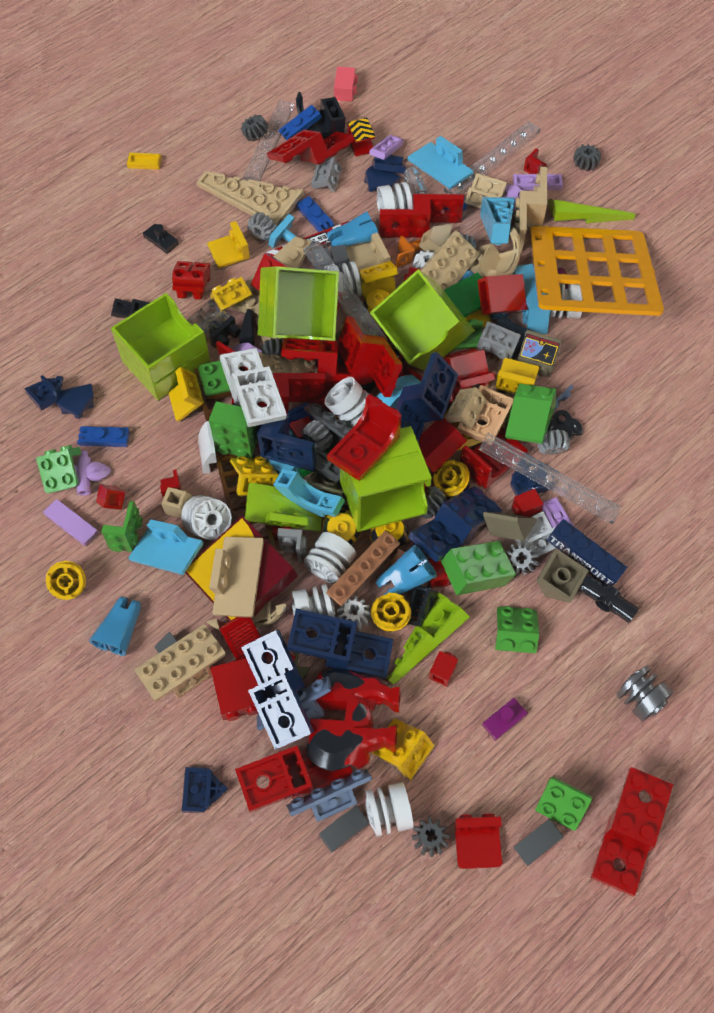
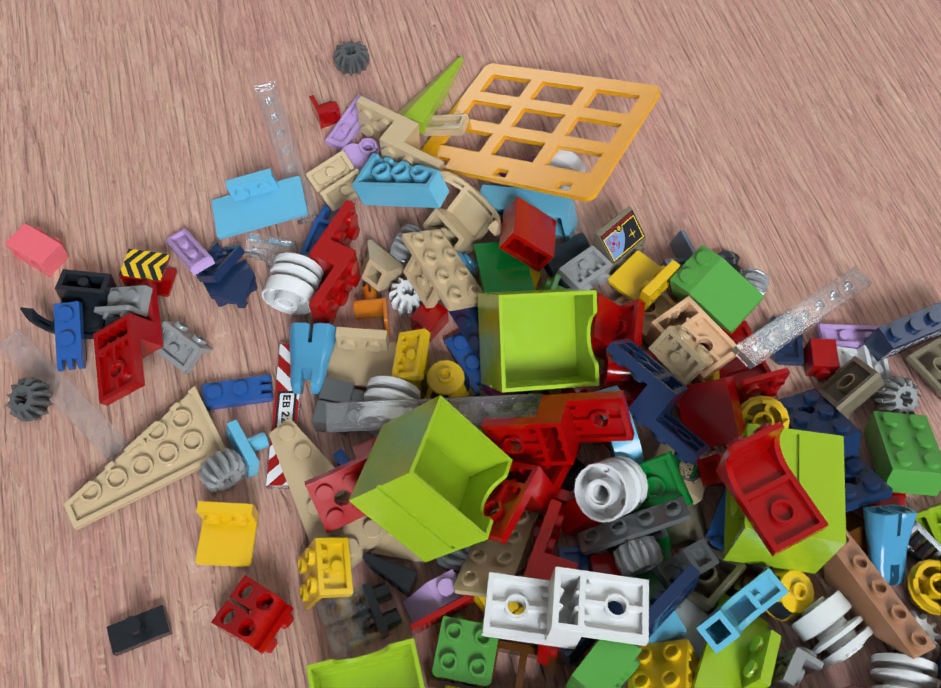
camera: 65 degrees left, 0 degrees up
(333, 135) = (125, 301): none -> light grey bracket
(569, 229) = (447, 125): none -> tan tile

